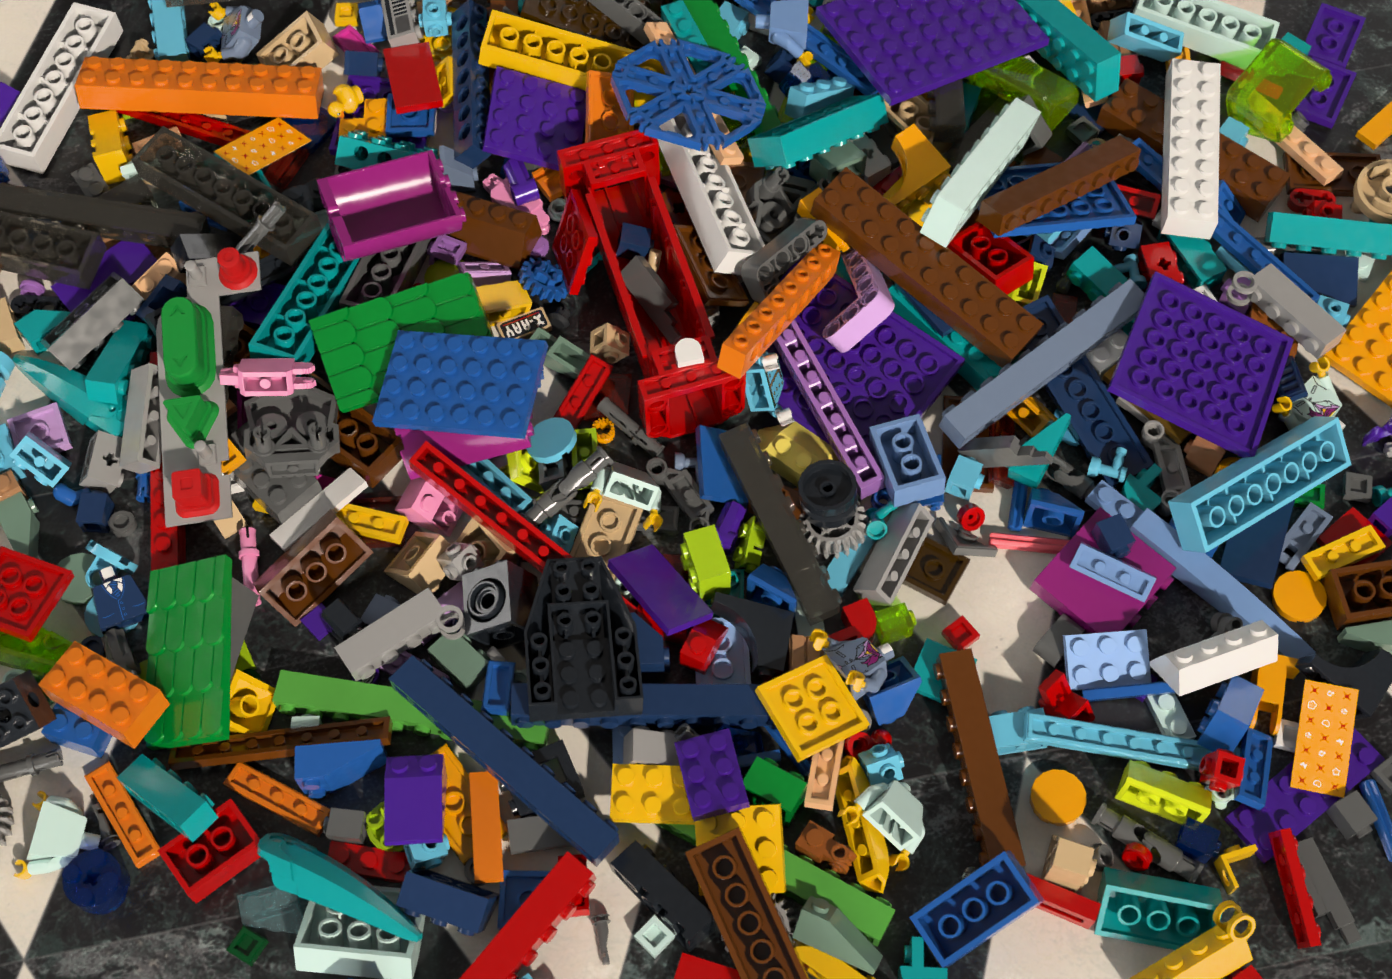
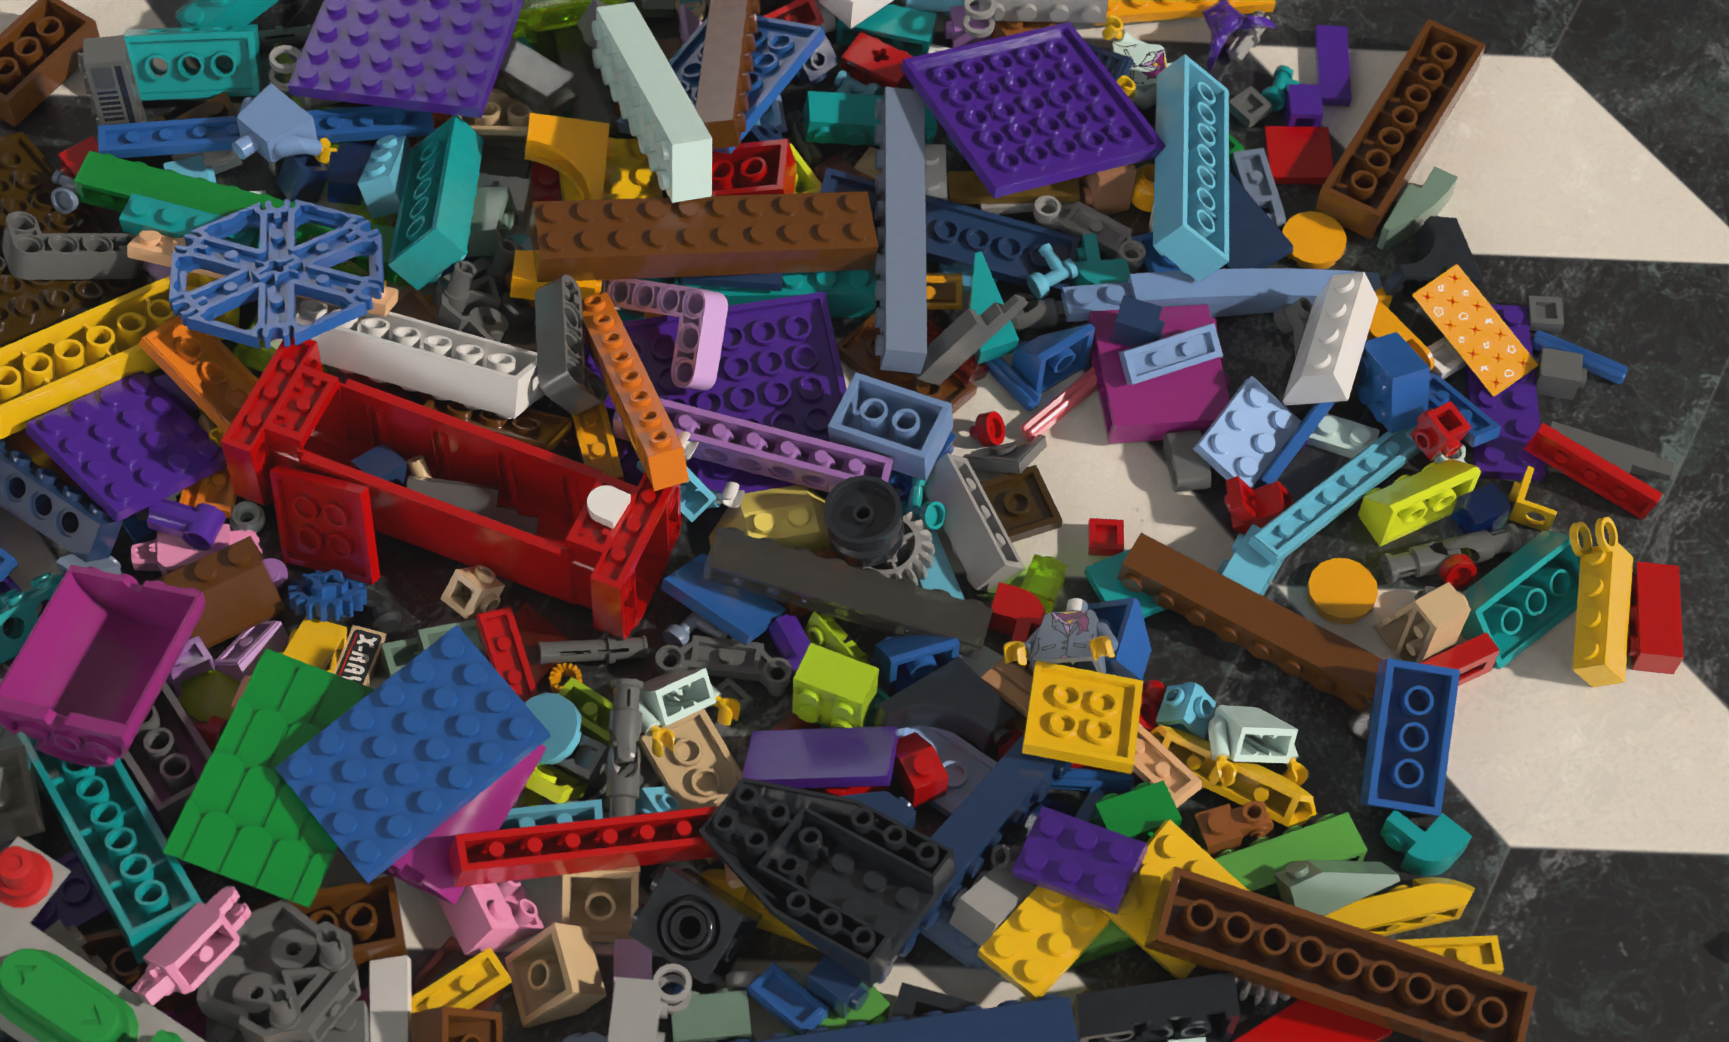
camera: 55 degrees left, 5 degrees down
(459, 560) = (602, 929): light grey brick -> none
(965, 477) = (951, 389): medium azure brick -> none
(1343, 552) = (1307, 170): yellow plate -> none

